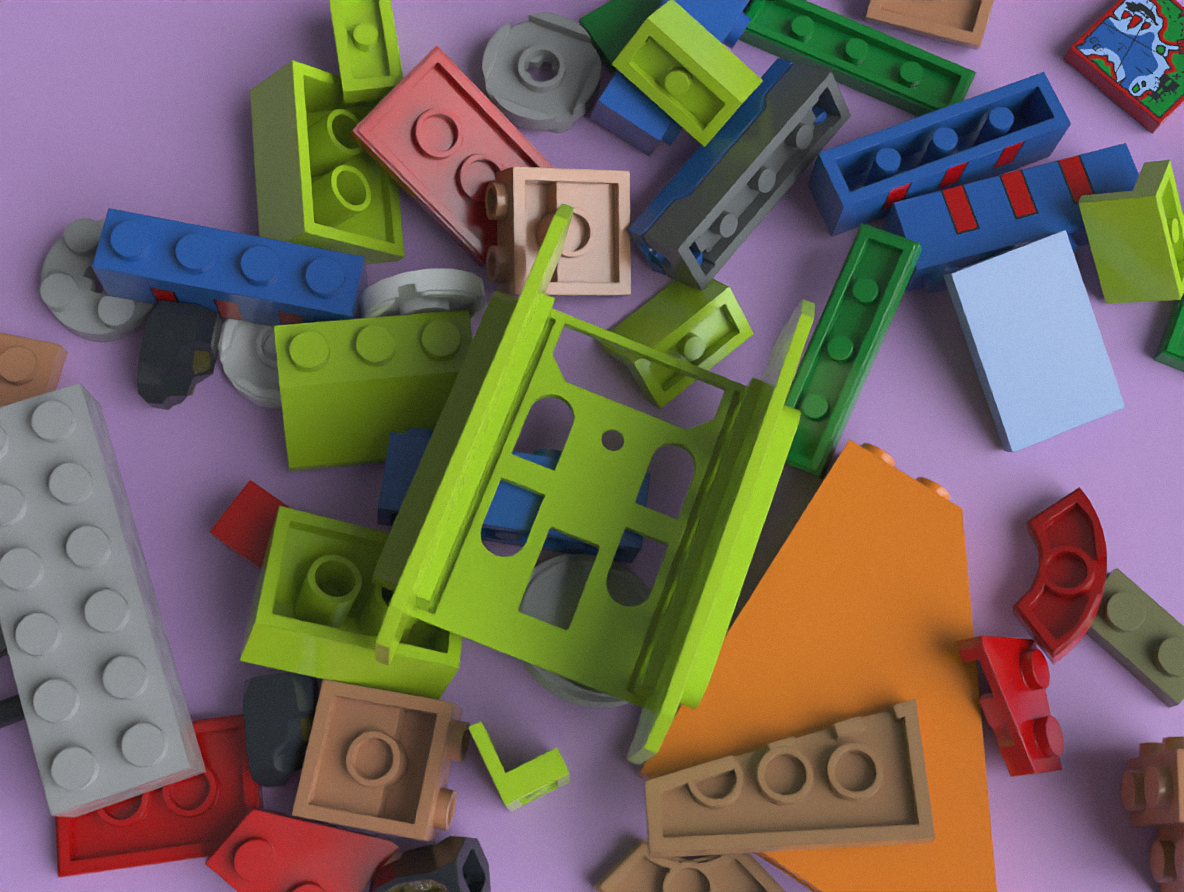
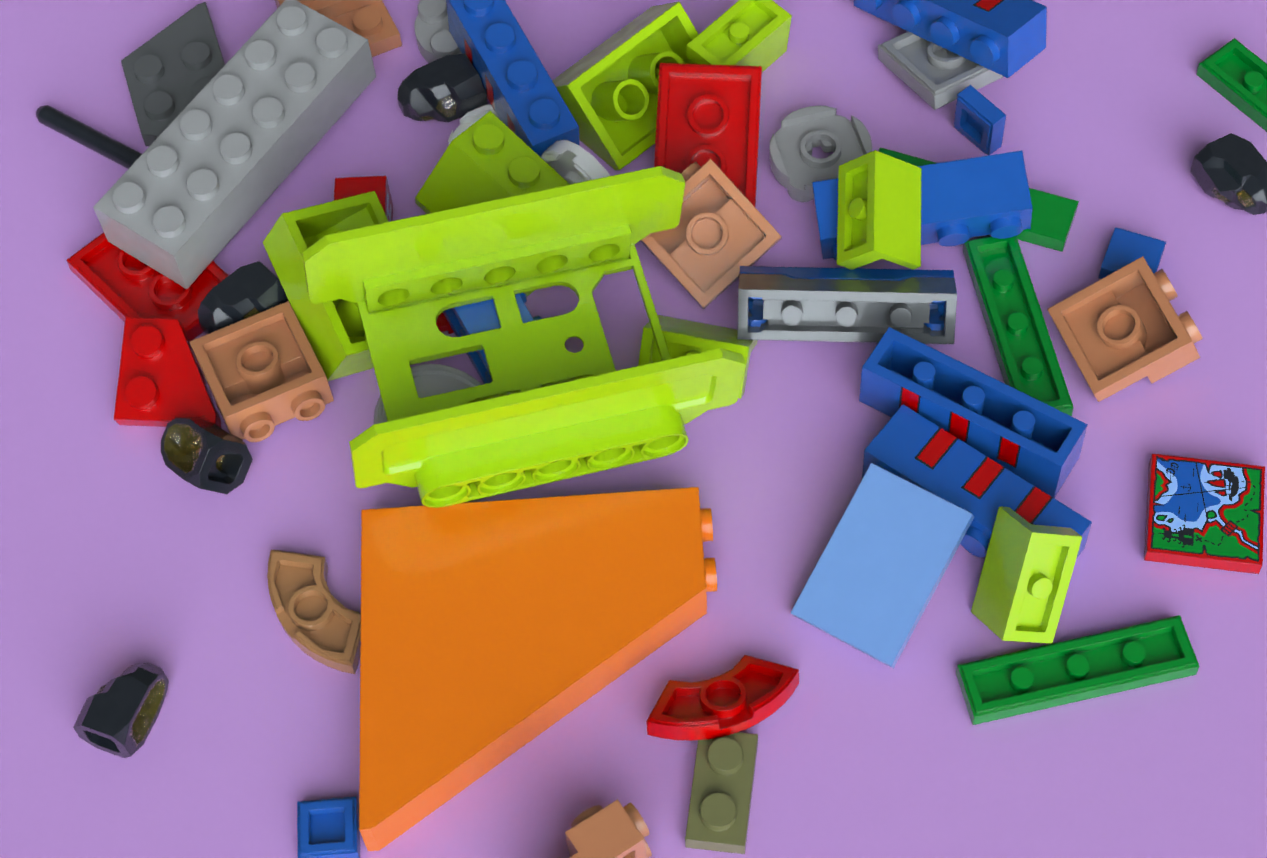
camera: 60 degrees right, 15 degrees down
(526, 781) = (307, 440): lime panel -> none
(811, 792) = (414, 605): medium nougat wing -> none
(847, 343) = (772, 447): green tile -> none
(1019, 703) = (594, 716): red wing -> none

